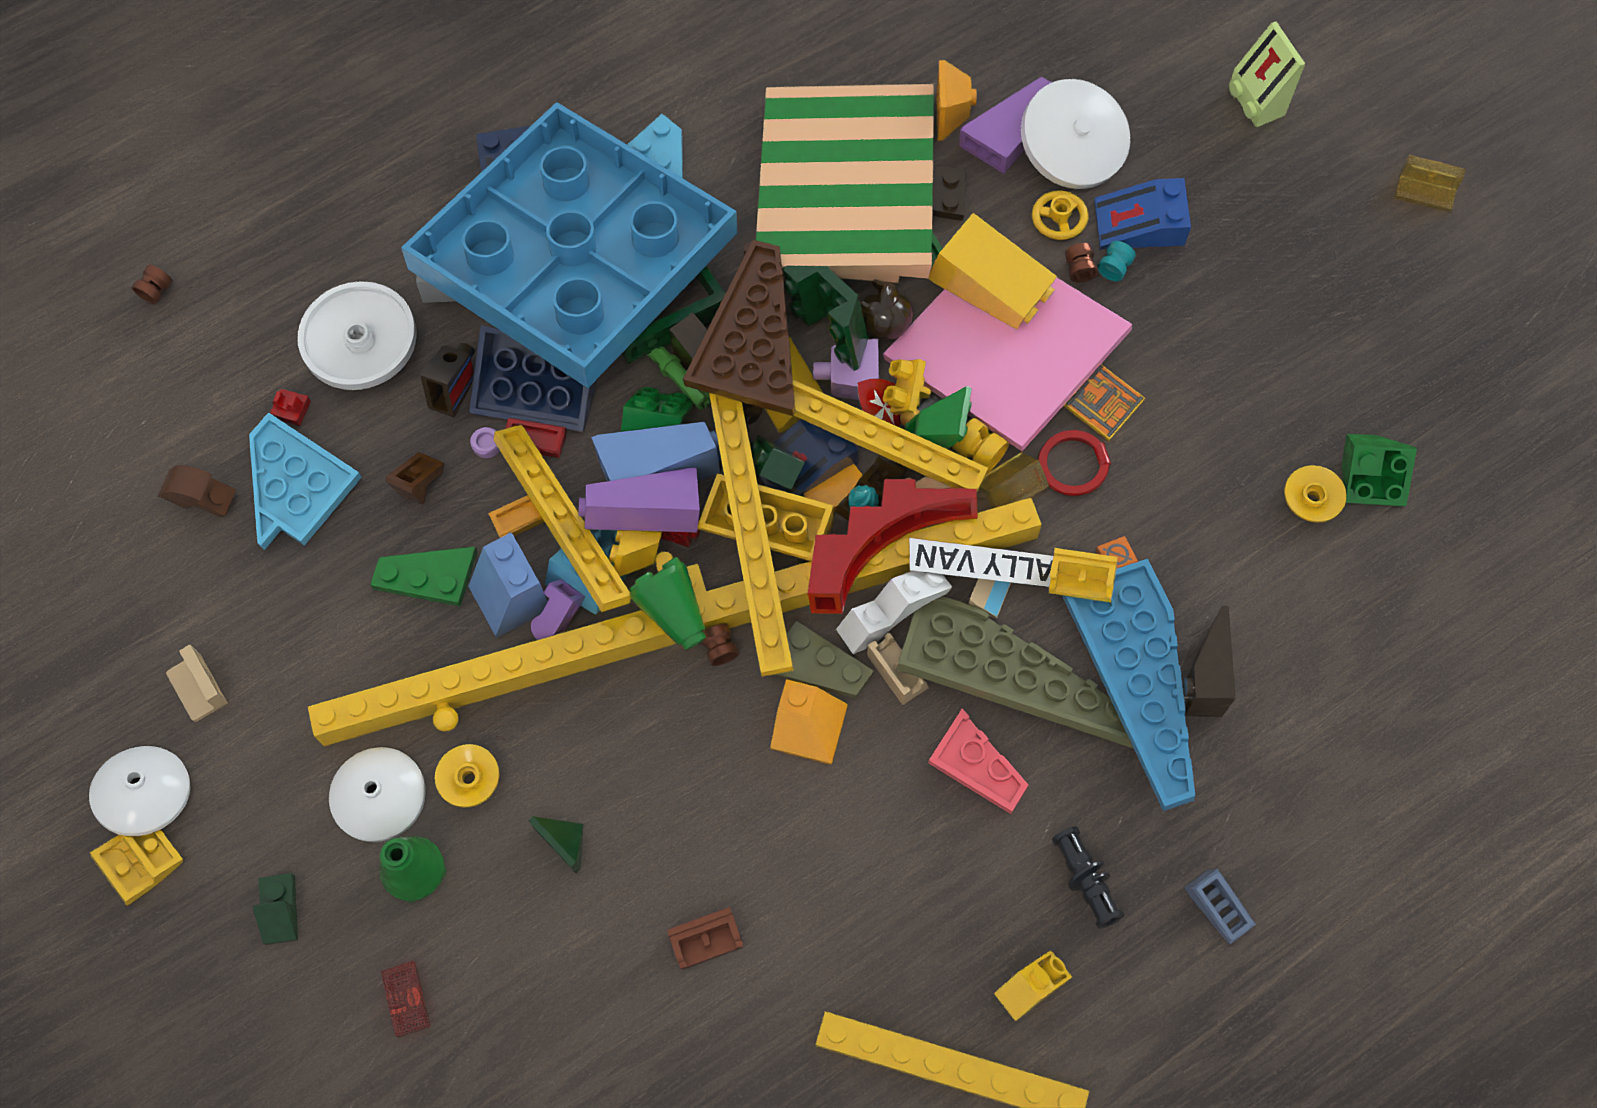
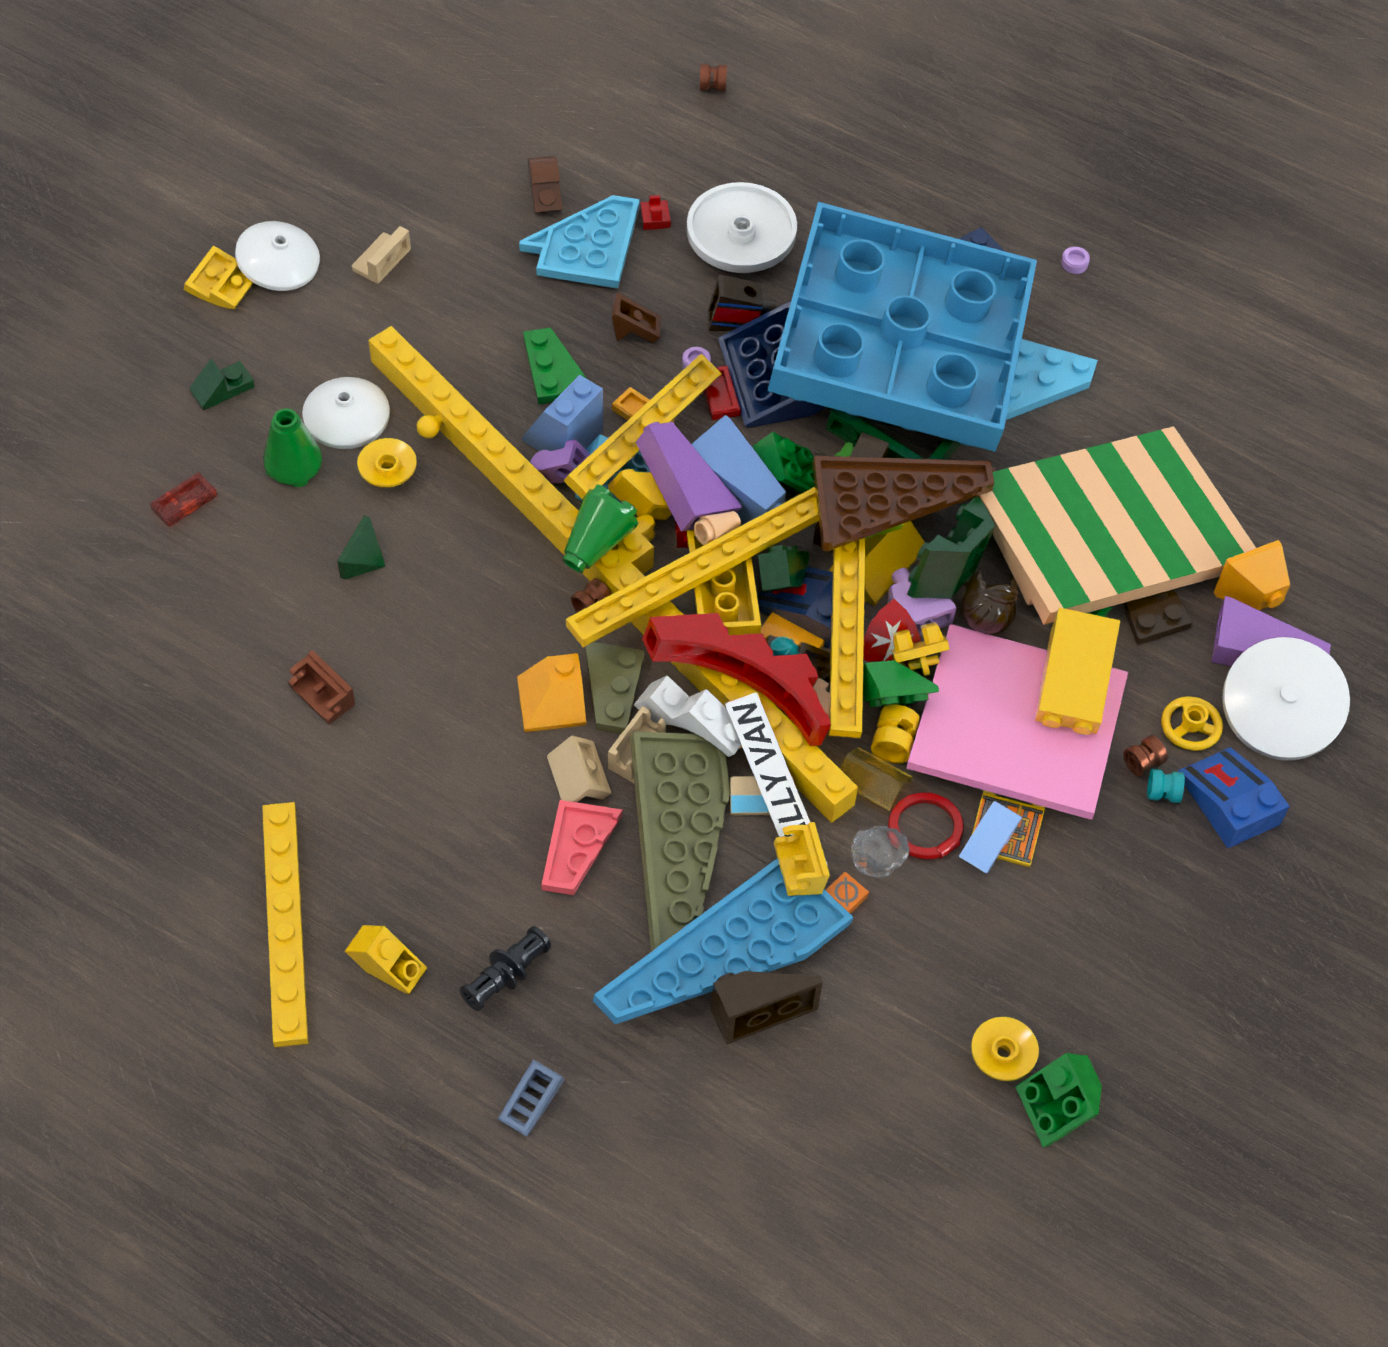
camera: 60 degrees right, 10 degrees down
(540, 81) = (1075, 260): none -> lavender tile
(712, 498) = (715, 526): none -> light nougat cone
(901, 733) = (578, 770): none -> tan panel
(1095, 508) = (879, 851): none -> clear hair
(1113, 414) = (990, 836): none -> light blue slope

